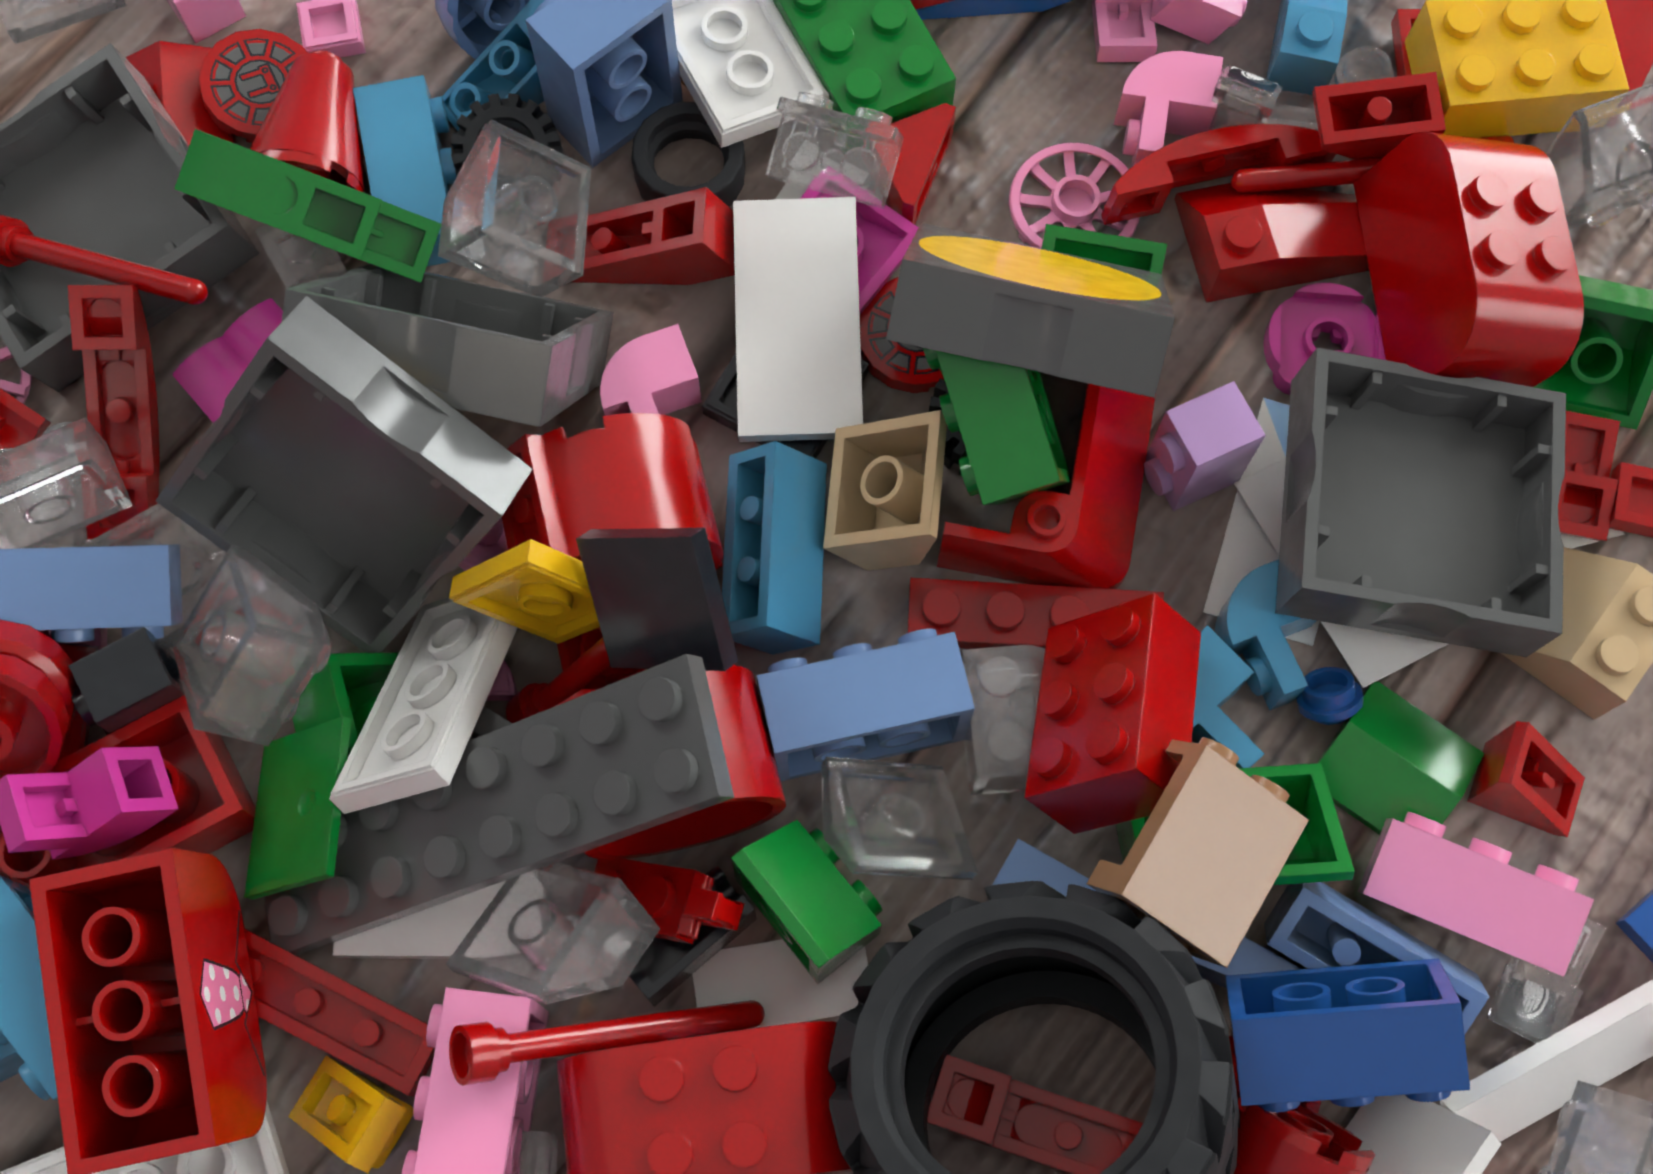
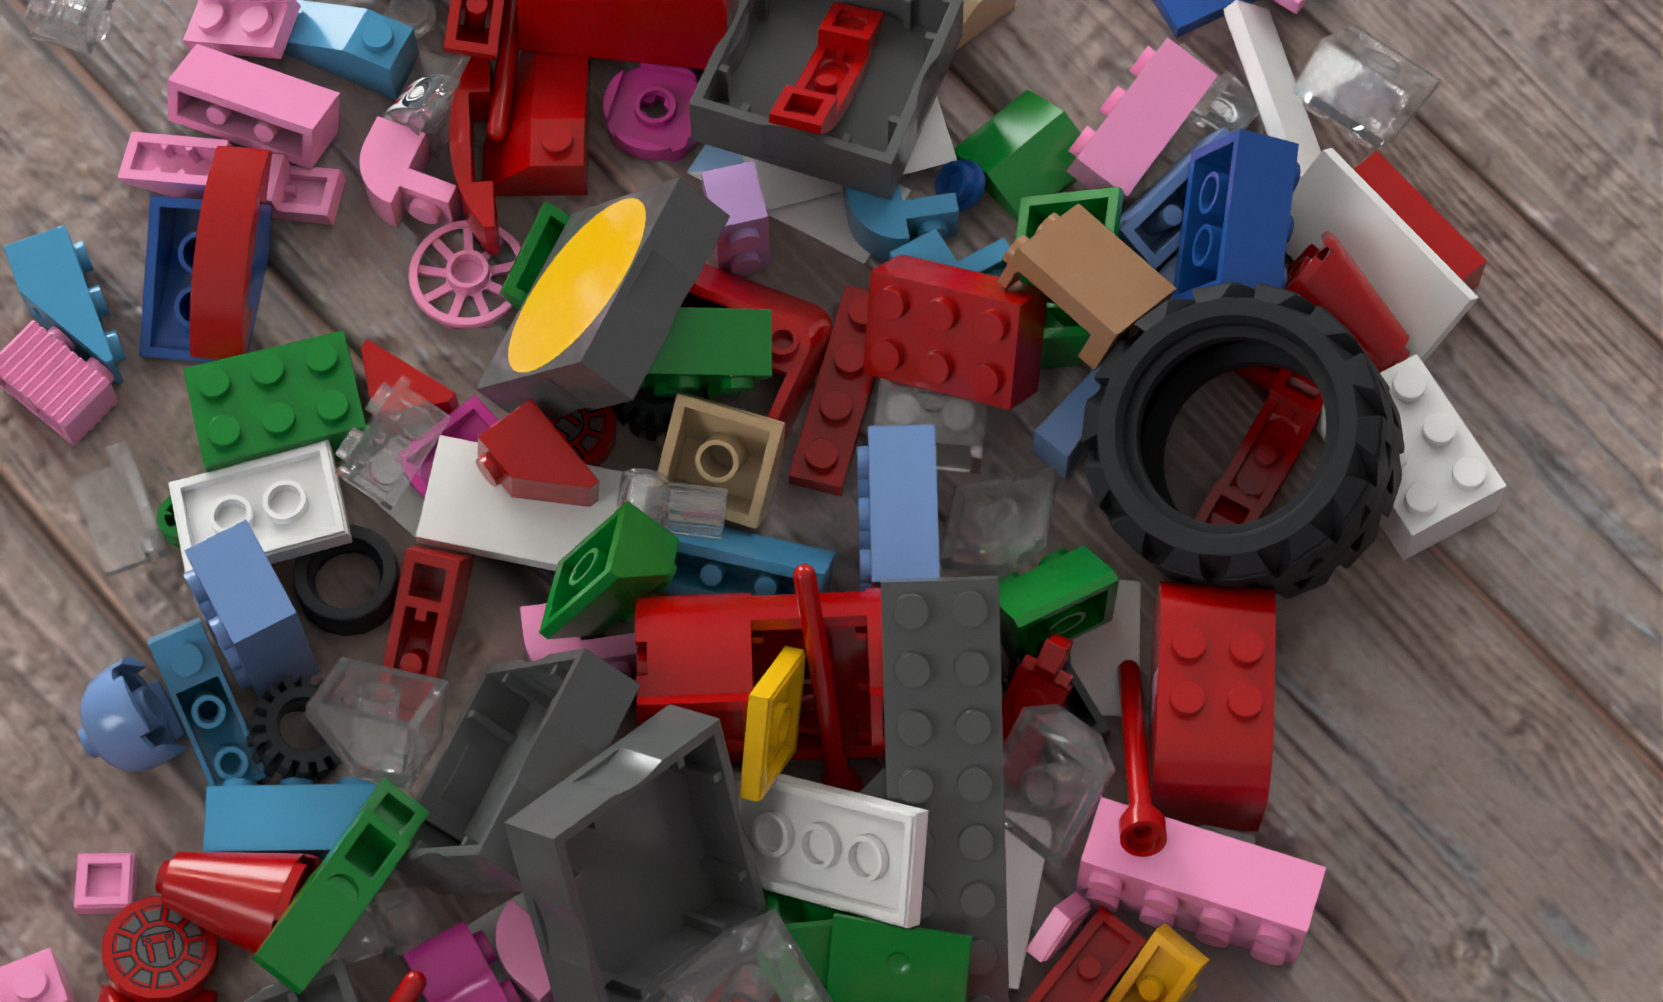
camera: 75 degrees left, 5 degrees down
(399, 984) = (1059, 927): none -> bright pink tile
(657, 596) = (816, 613): black tile -> none
(716, 391) = (607, 572): none -> green slope
(814, 428) = (675, 506): none -> clear piece
(842, 287) = (534, 460): none -> red slope
(1409, 508) = (832, 72): none -> red slope
(1527, 780) = (1056, 65): red slope -> none

